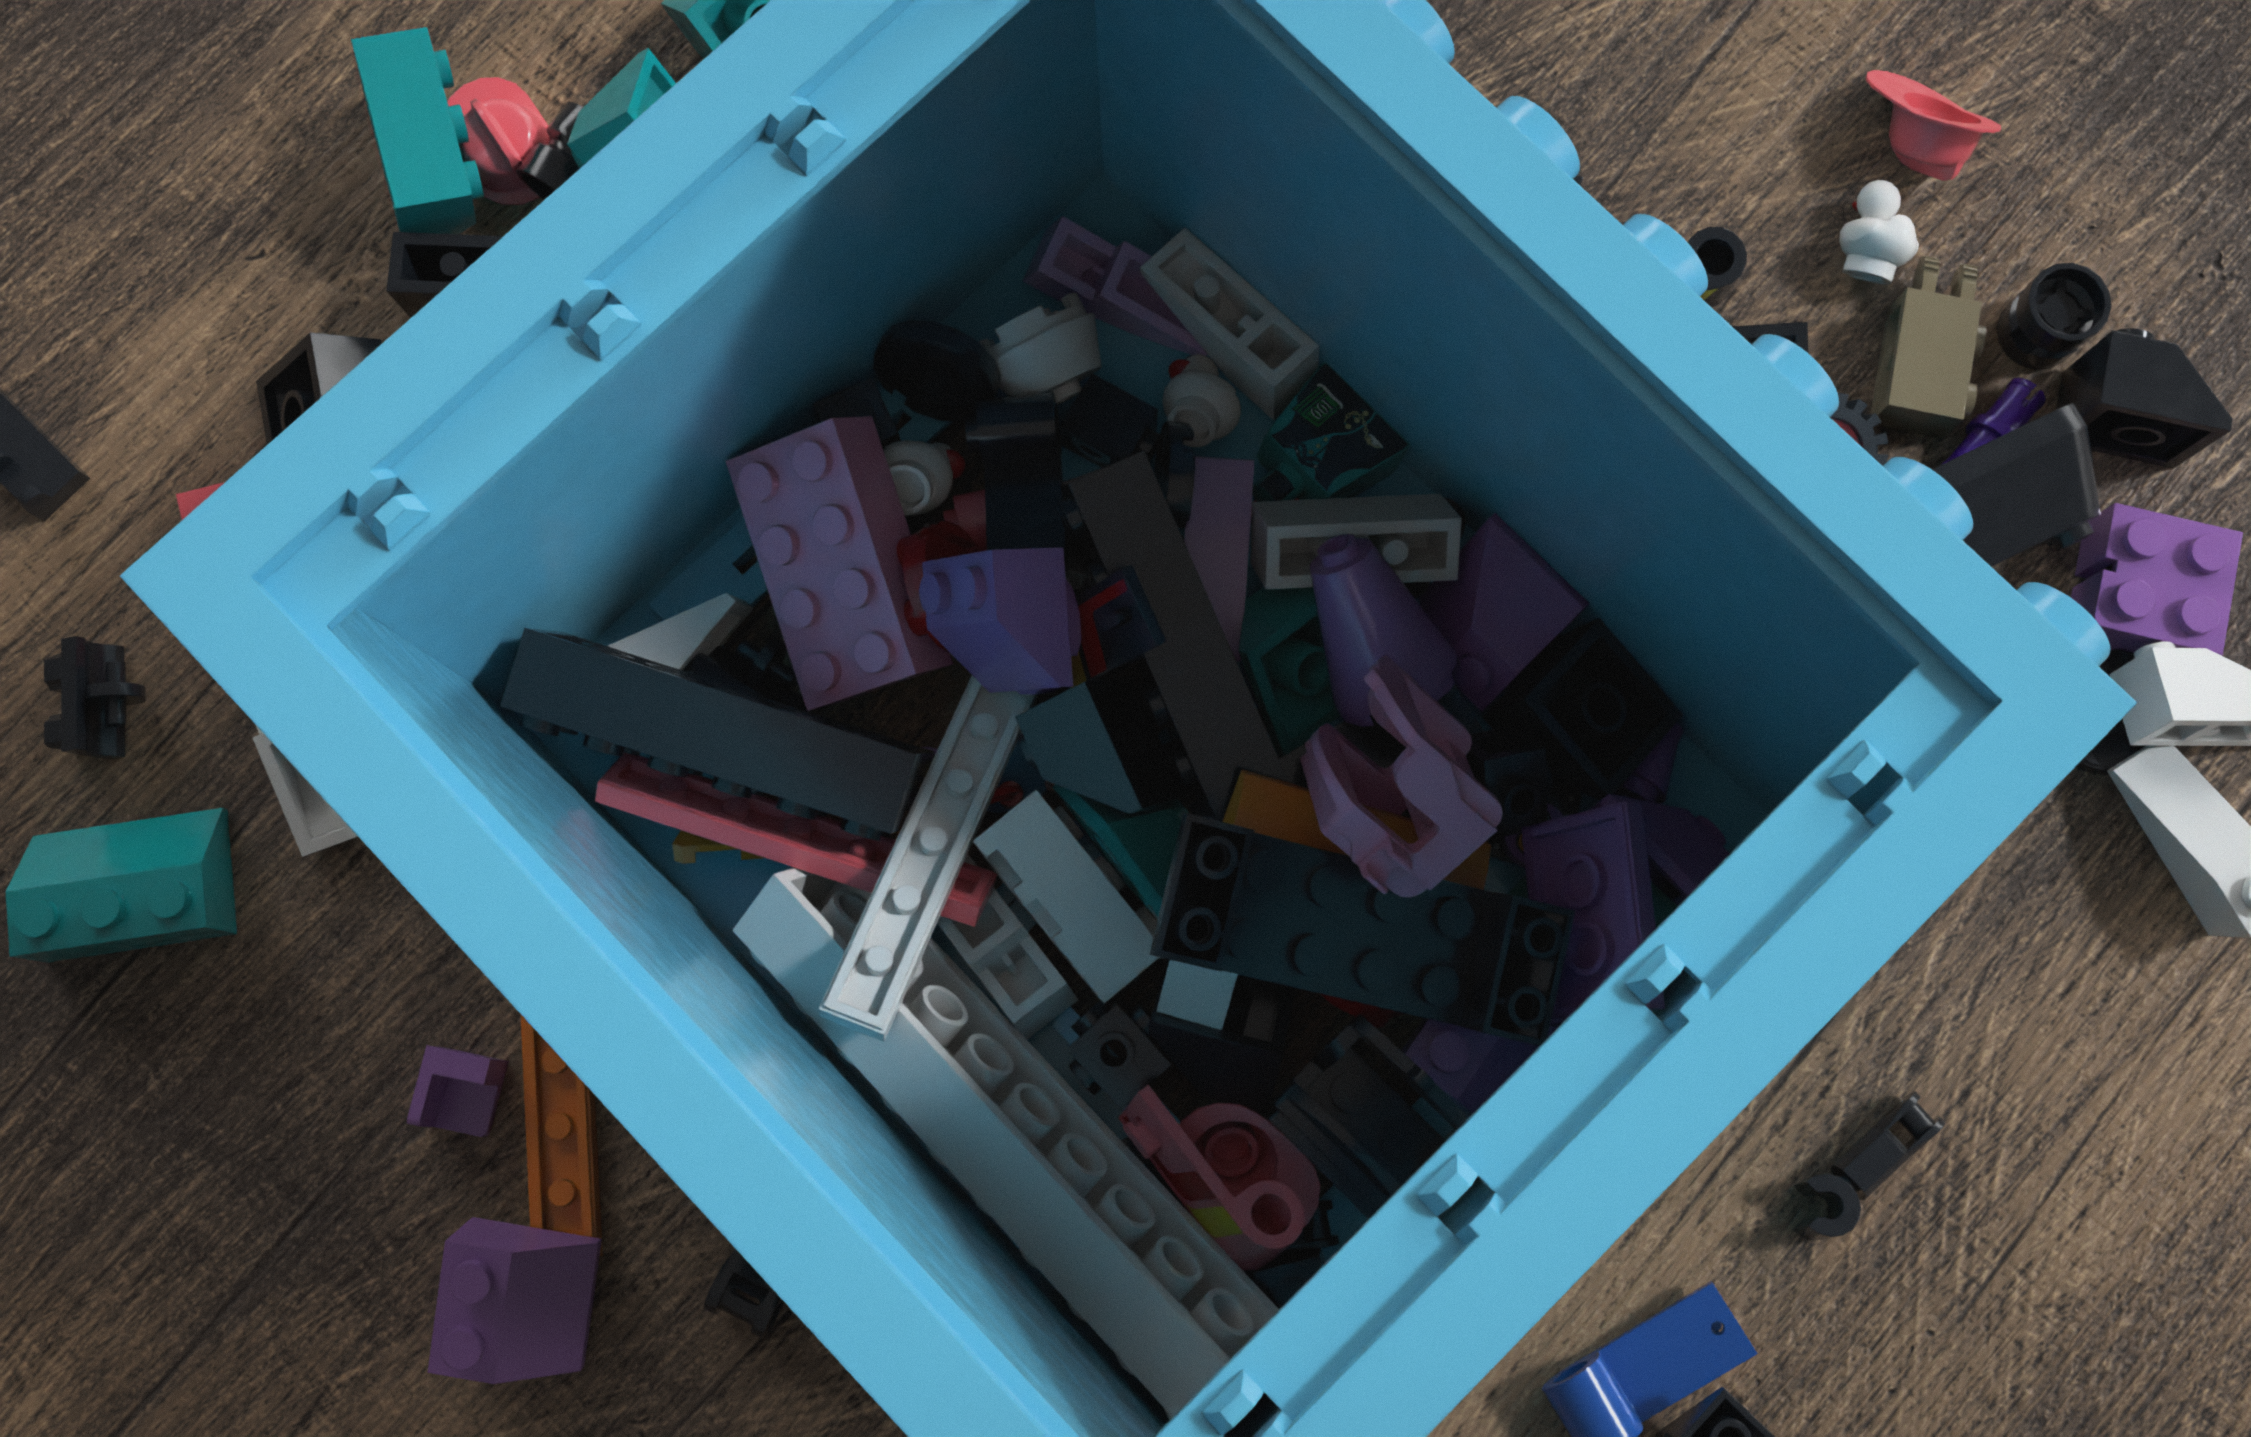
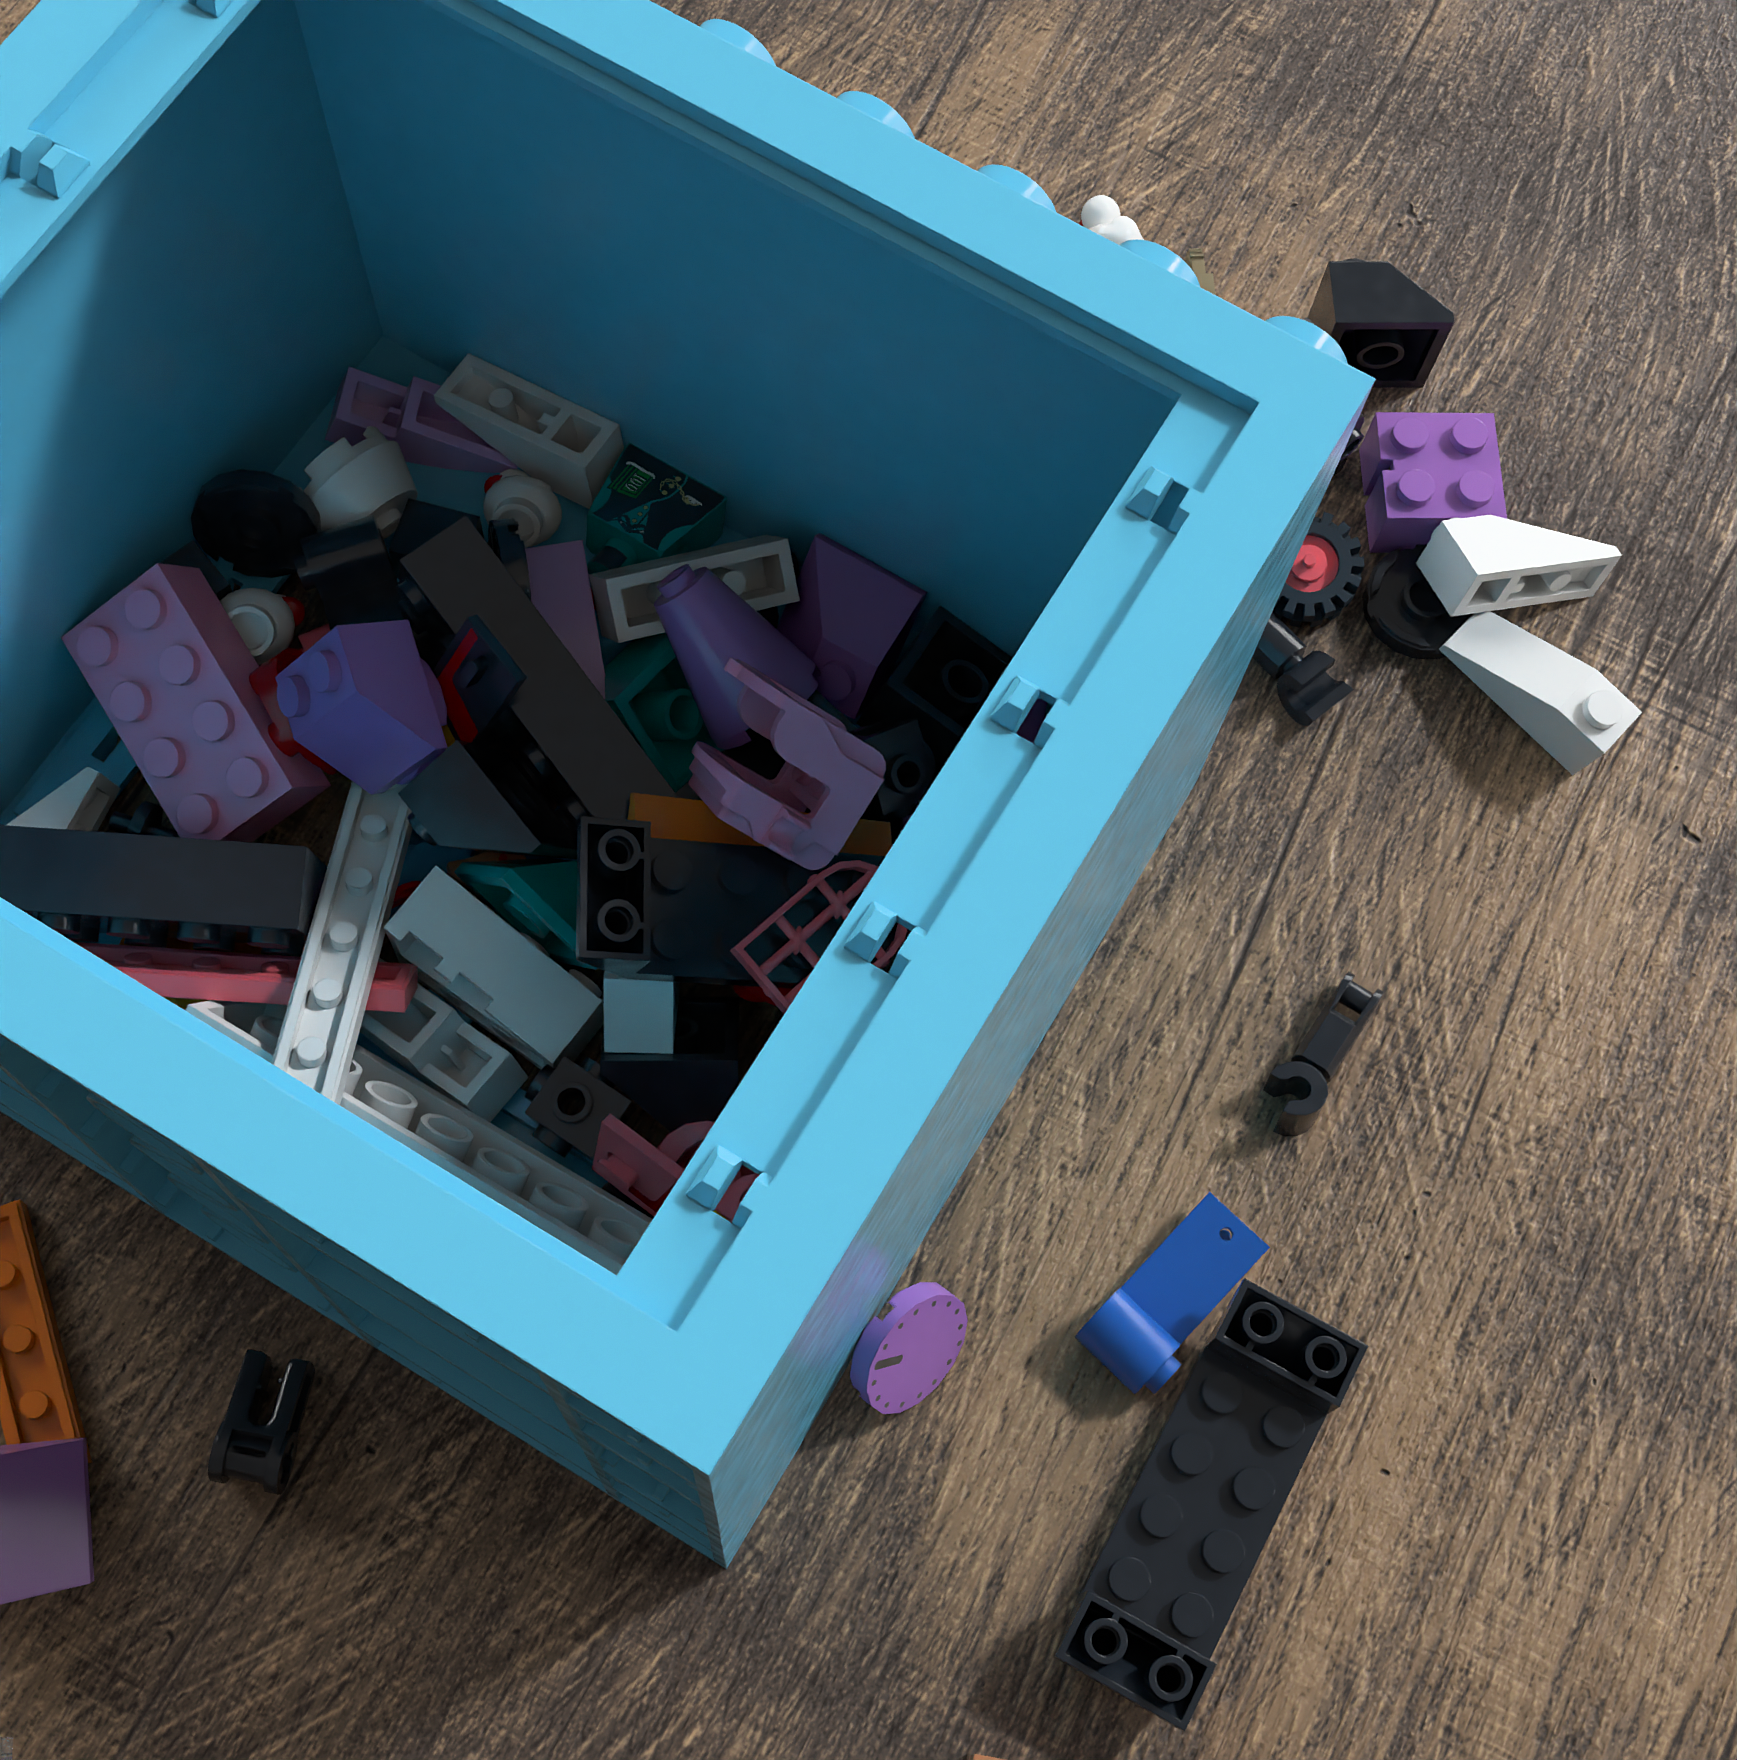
camera: 25 degrees left, 10 degrees down
(1389, 995) = (798, 937): none -> coral window
(1927, 128) = (1128, 151): coral piece -> none
(2054, 316) = (1280, 271): black wheel -> none

